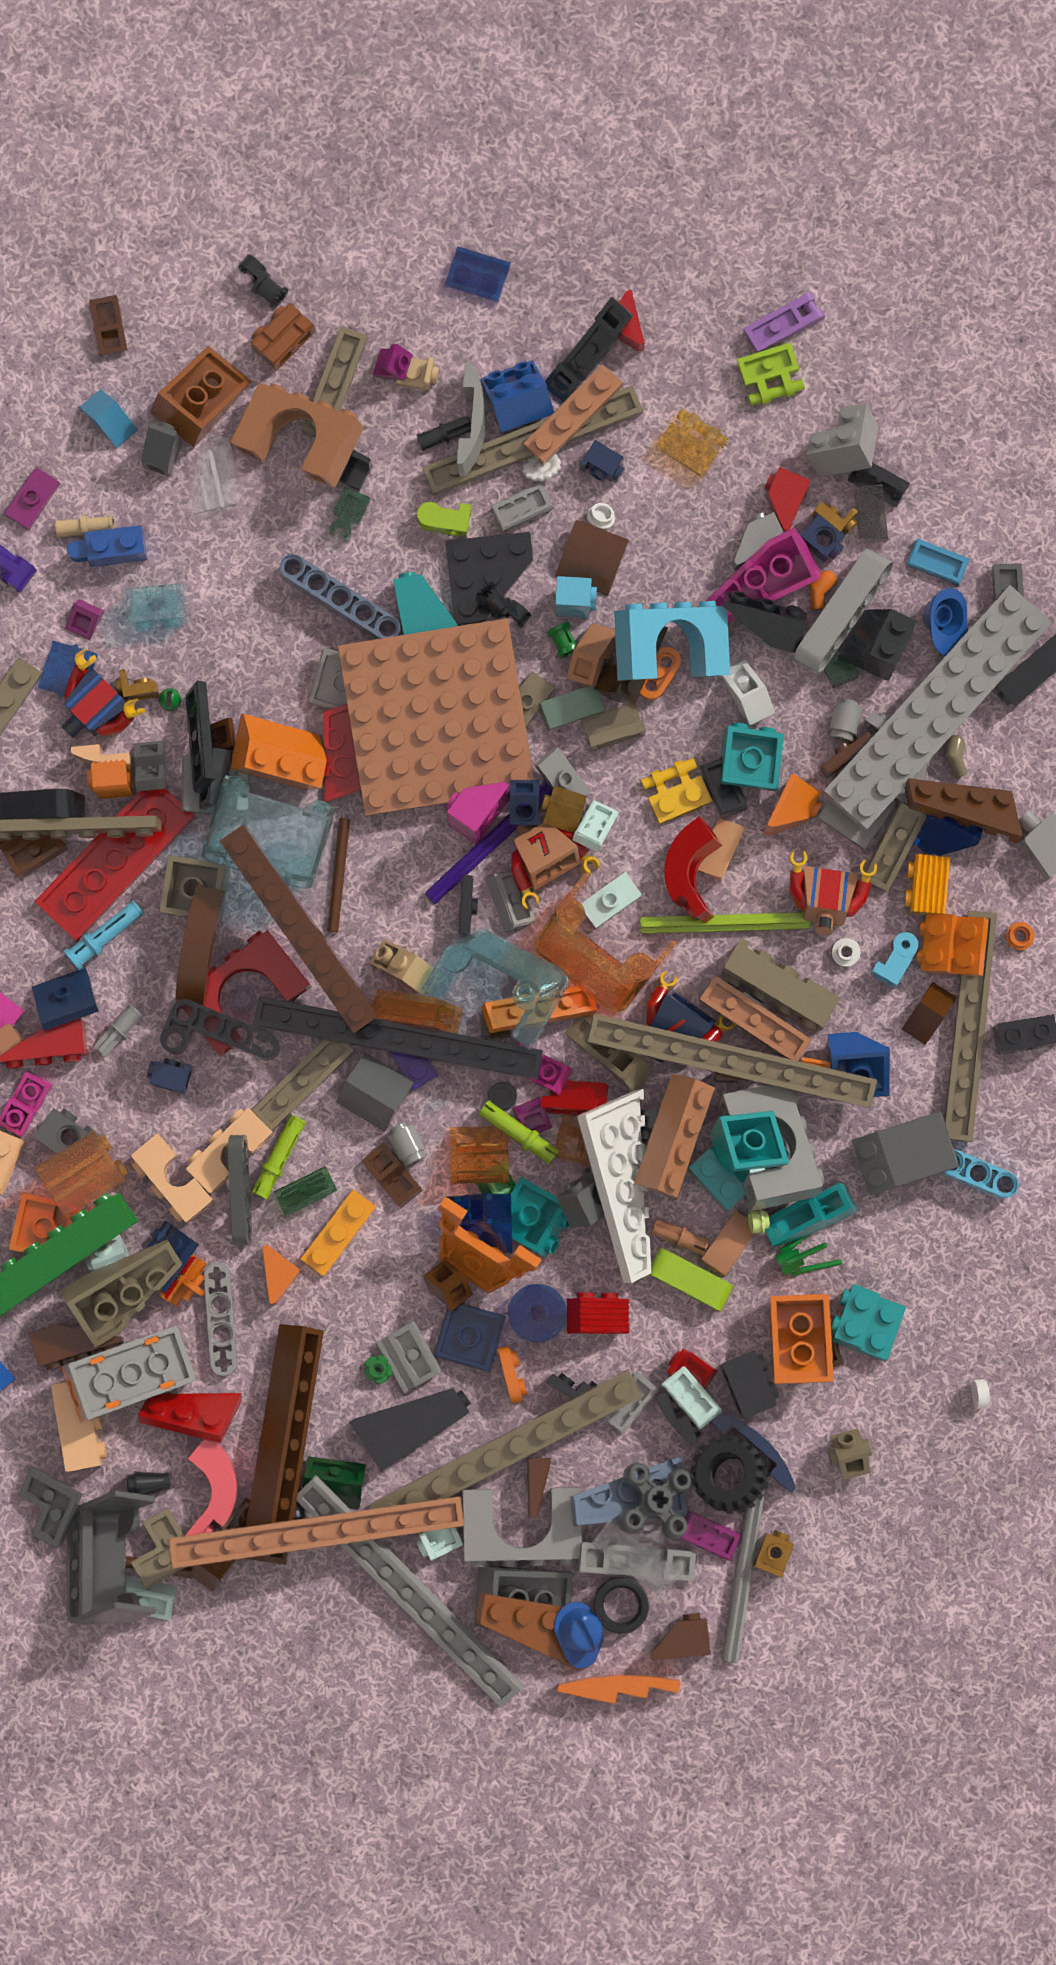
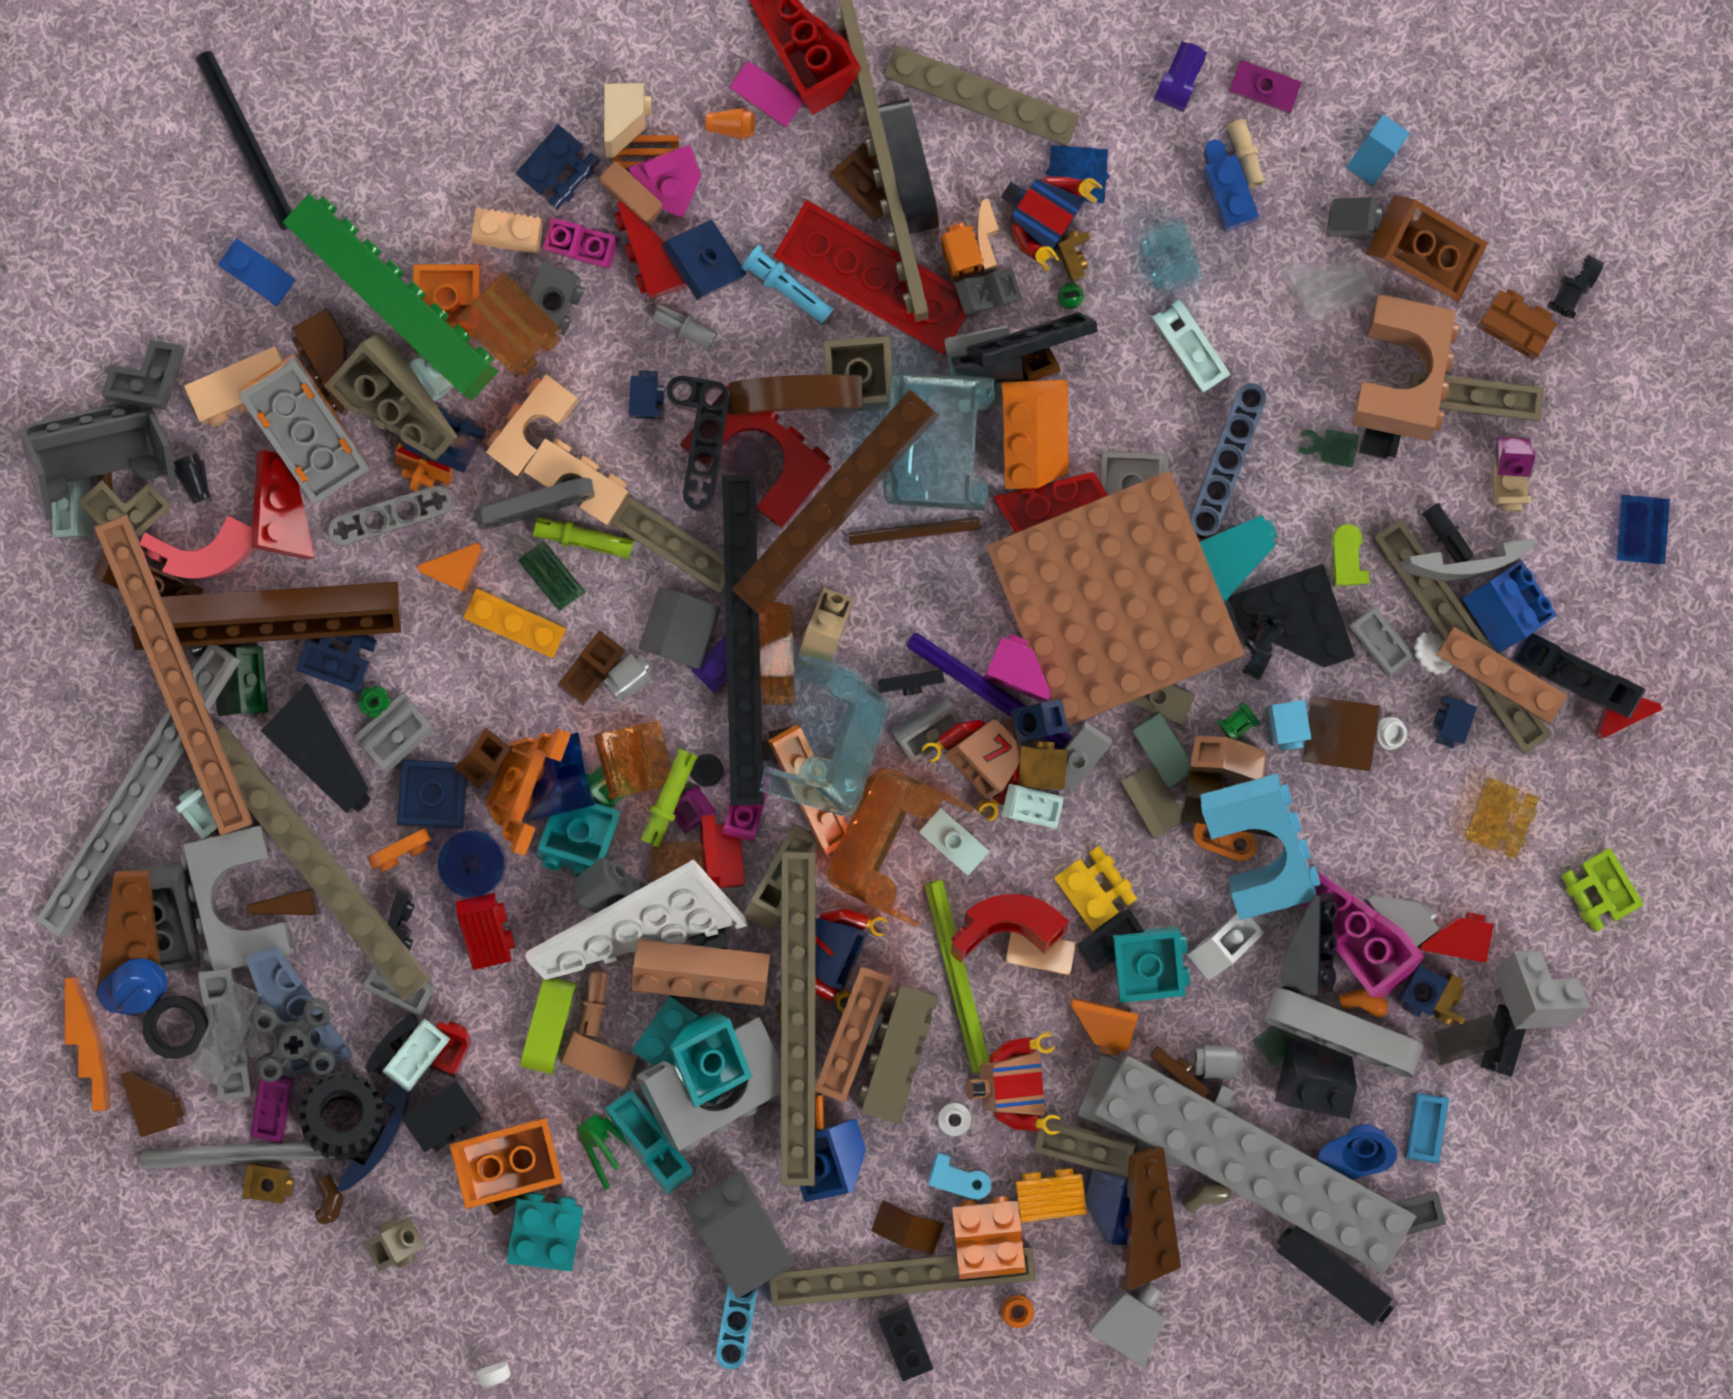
camera: 80 degrees right, 5 degrees up
(84, 619) = (1140, 178): magenta slope -> none
(108, 325) = (1485, 124): reddish brown slope -> none
(237, 608) = (1191, 347): none -> light aqua plate
(339, 1396) = (335, 666): none -> dark blue plate
(758, 1221) = (628, 1086): yellowish green plate -> none
(783, 323) = (1665, 891): medium lavender plate -> none
(801, 1501) = (332, 1200): none -> reddish brown arm

